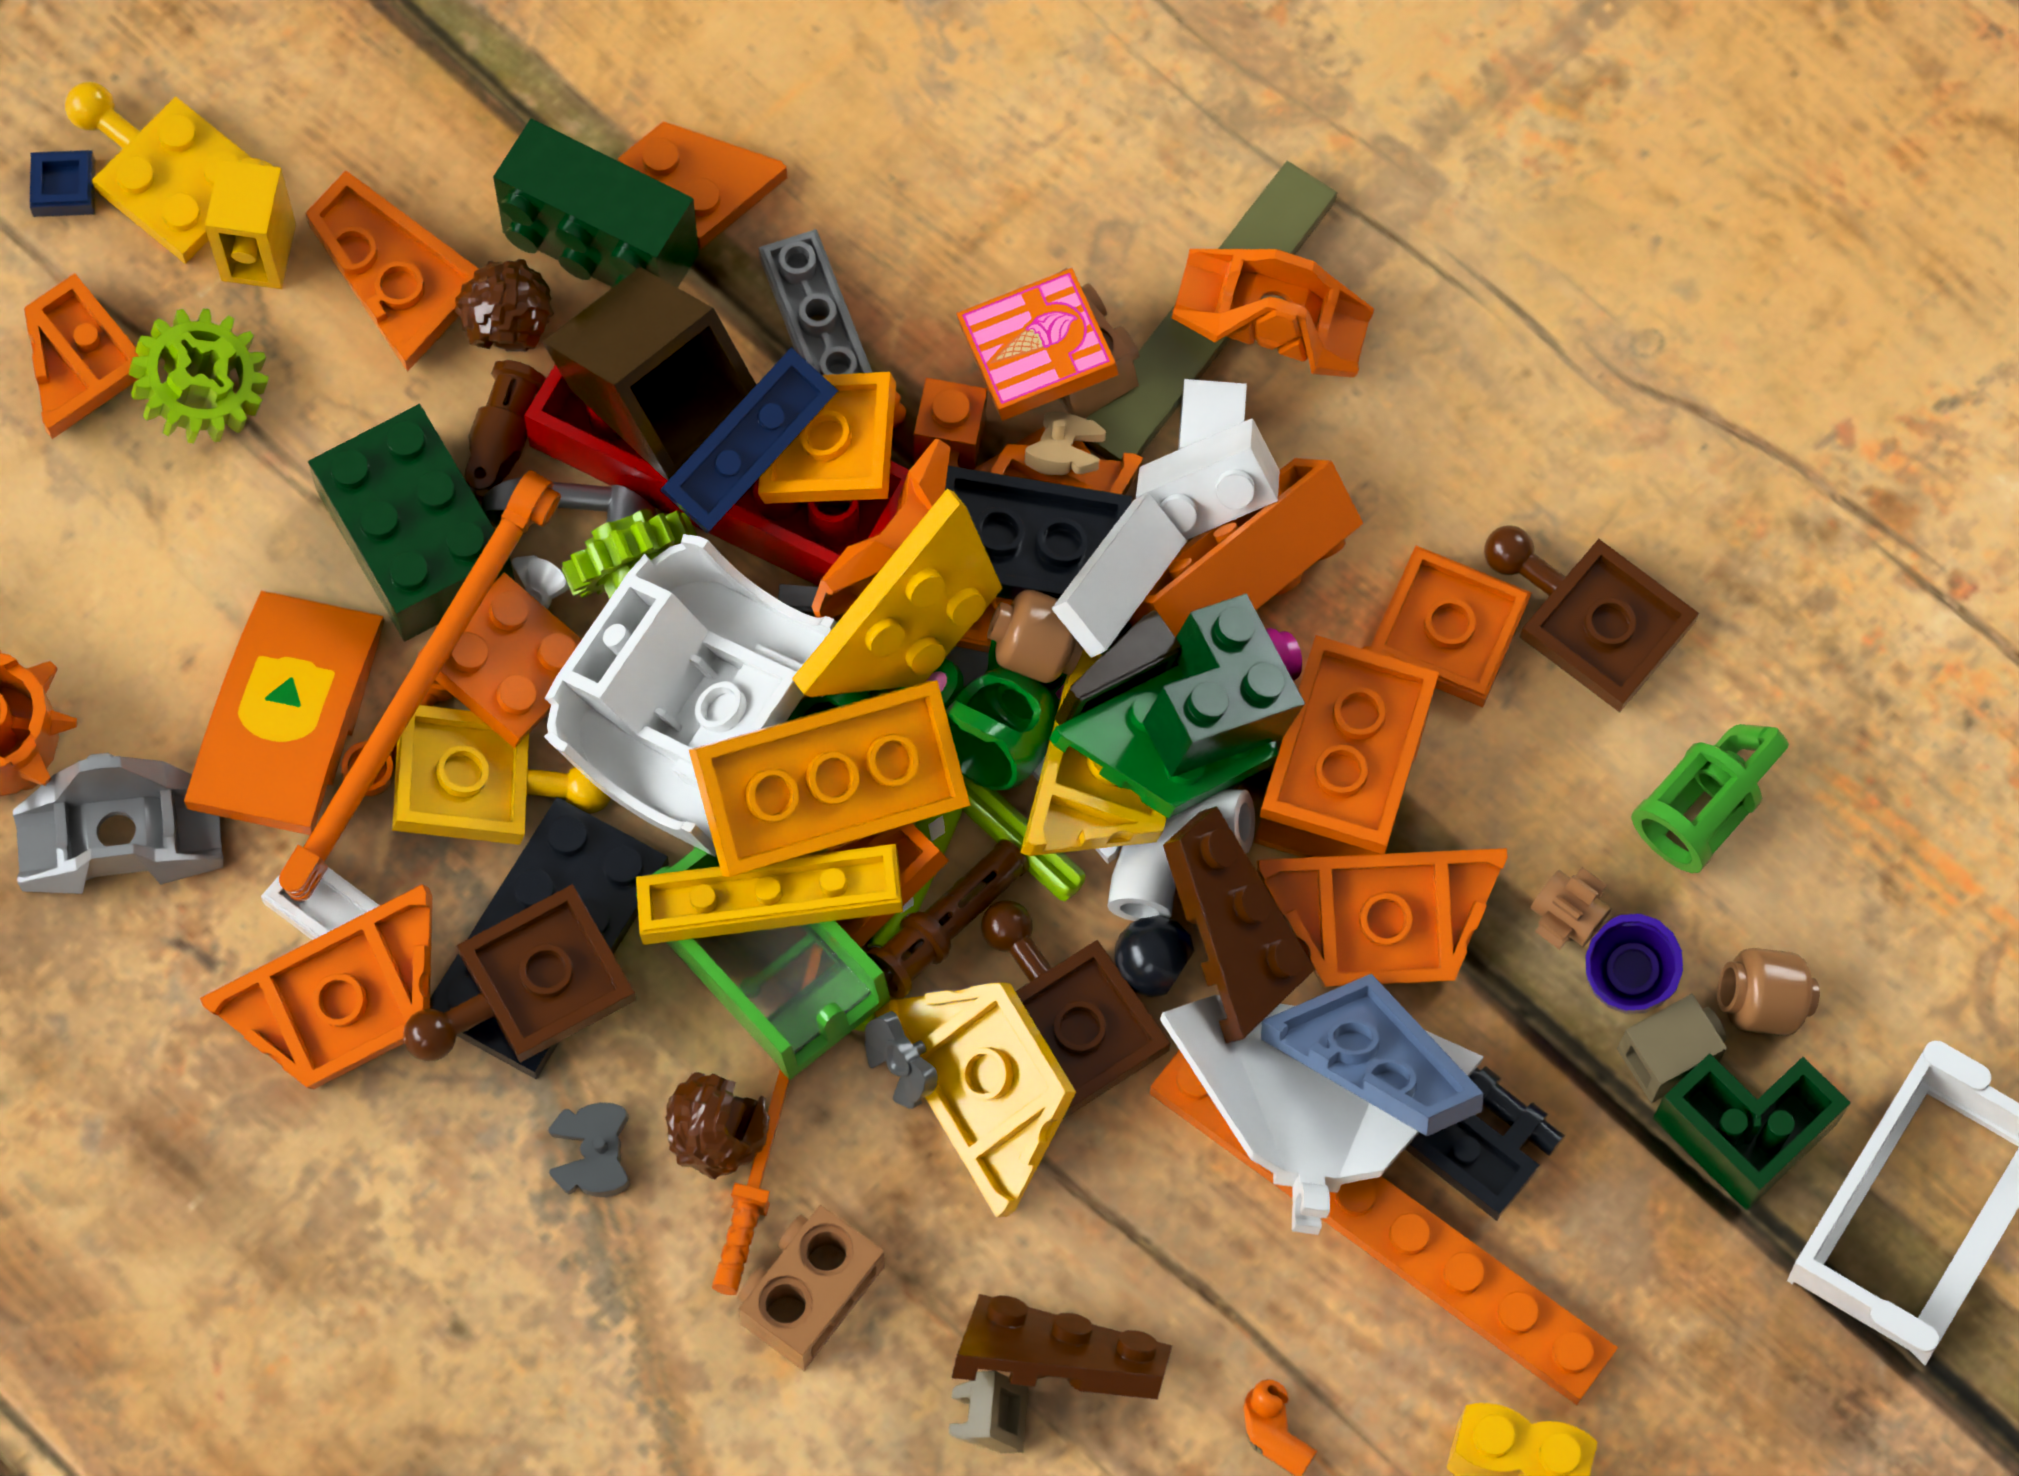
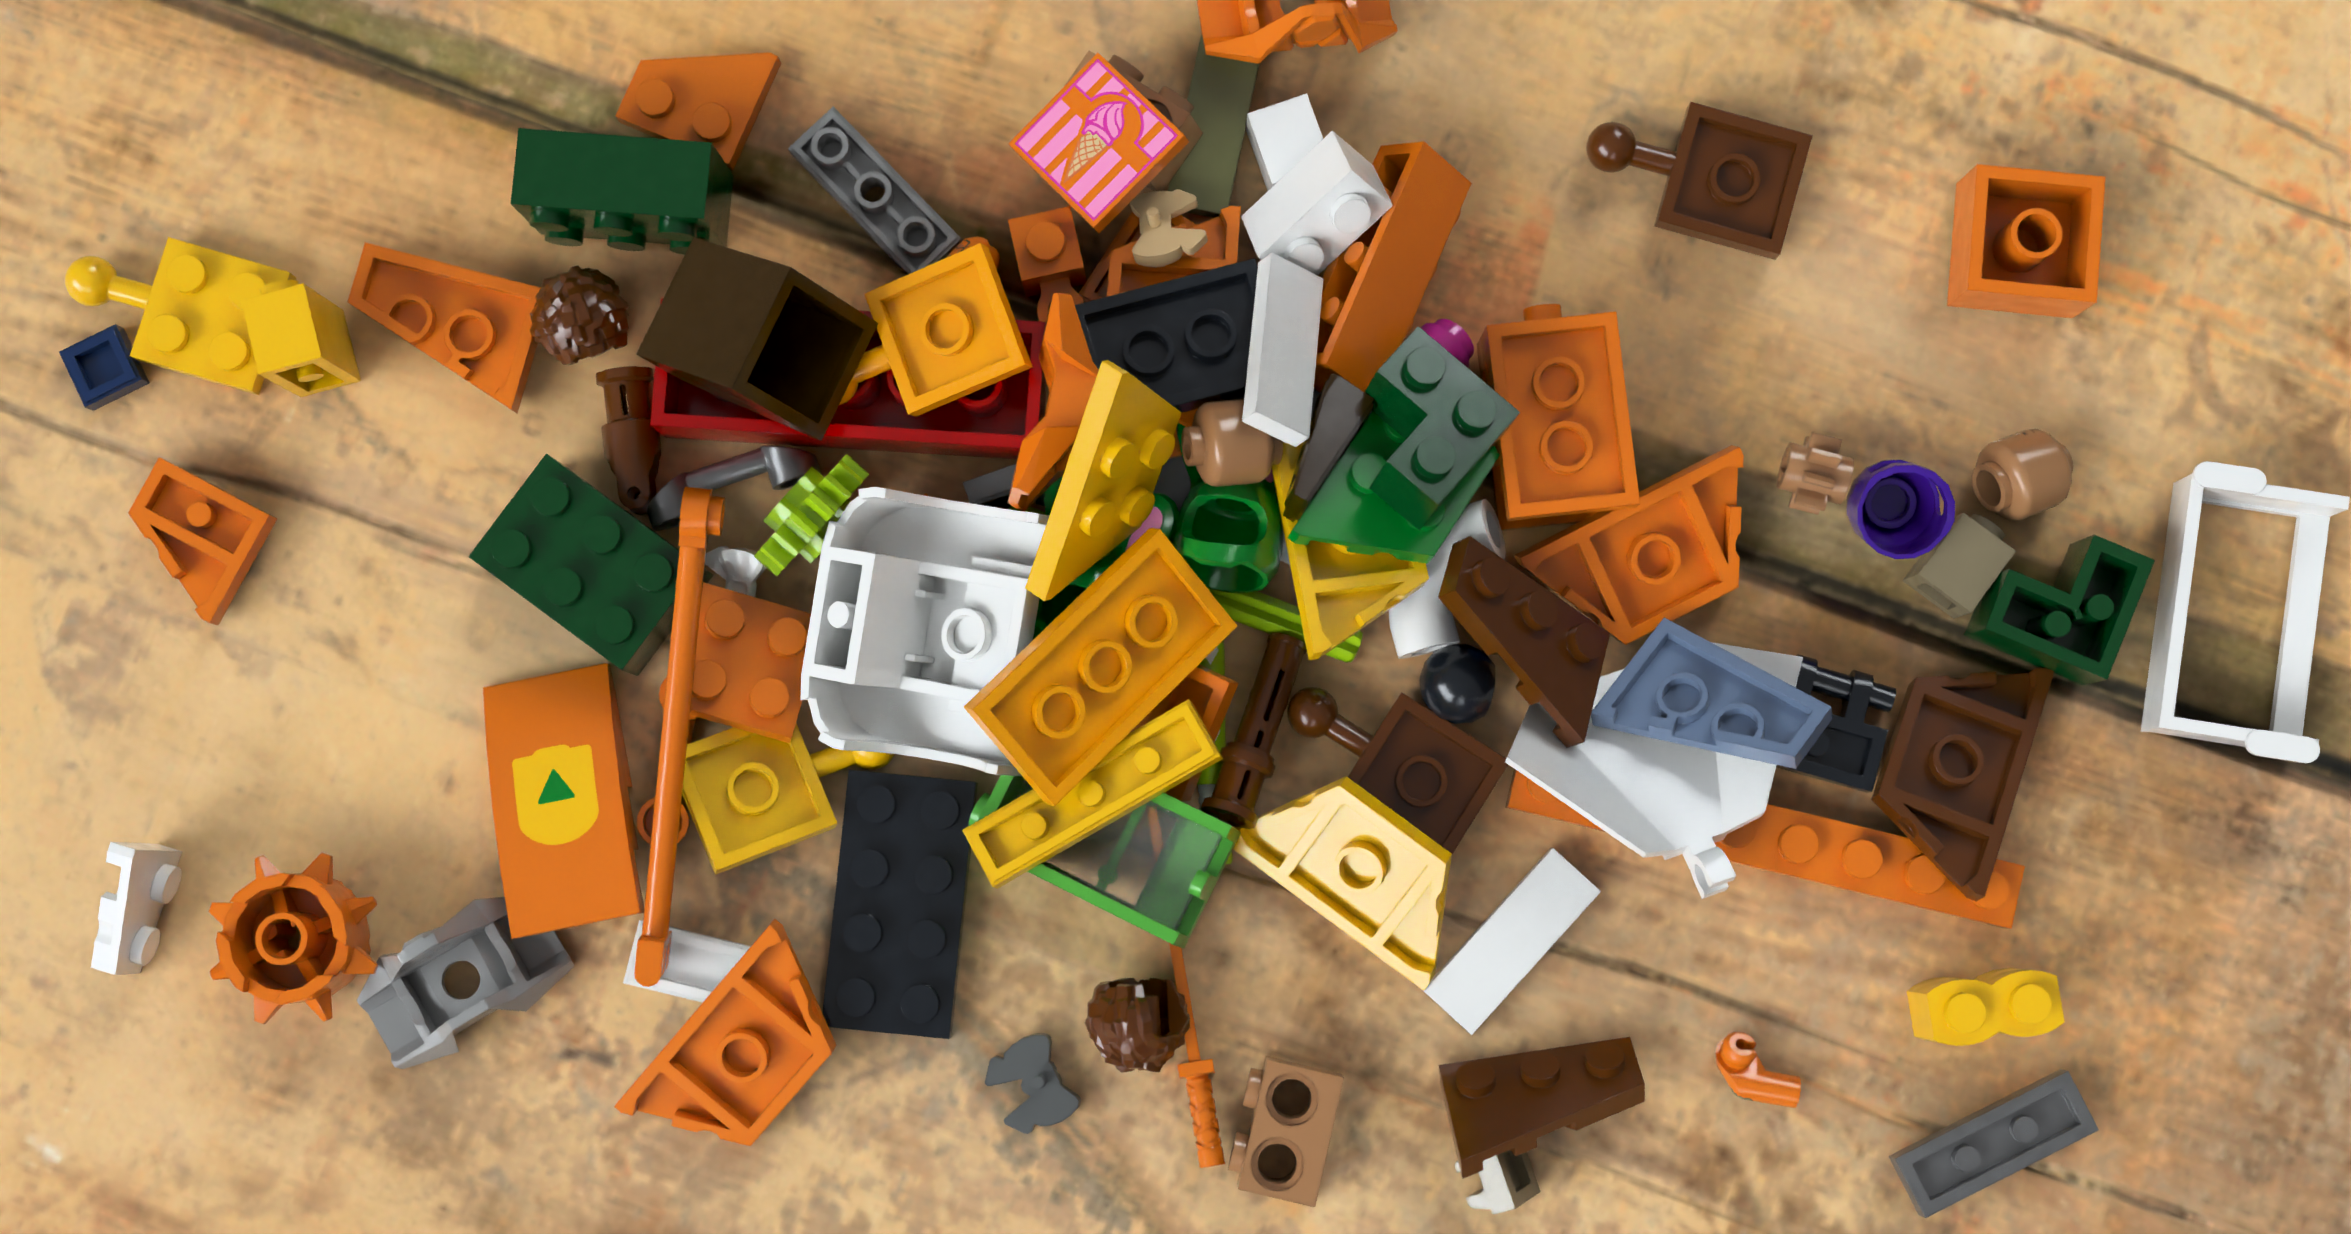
camera: 15 degrees left, 15 degrees up
(196, 400) = (335, 484): lime gear -> none
(538, 977) = (915, 960): reddish brown plate -> none
(749, 440) = (878, 370): dark blue plate -> none
(889, 1044) = (1295, 898): dark grey piece -> none
(1099, 1211) = (1511, 940): none -> white tile
(1452, 623) = (1585, 242): orange tile -> none
(1593, 1227) = (1960, 767): none -> reddish brown wing
(1722, 776) = (1903, 287): bright green piece -> none
(1856, 783) = (2026, 241): none -> orange brick

